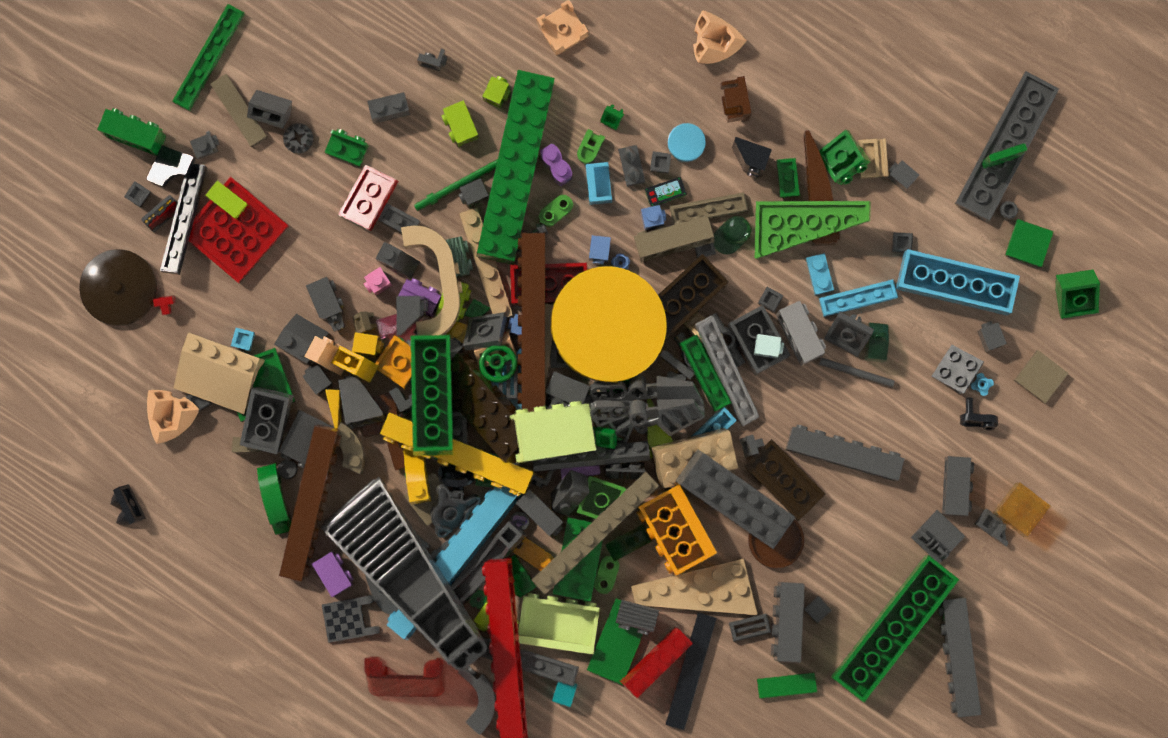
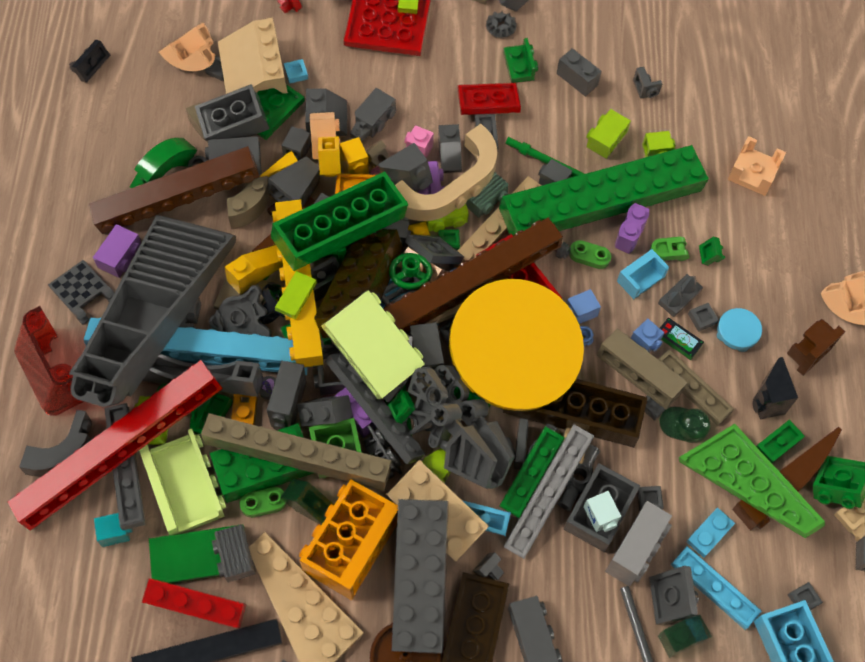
camera: 55 degrees right, 20 degrees down
(473, 464) = (295, 295): none -> lime tile

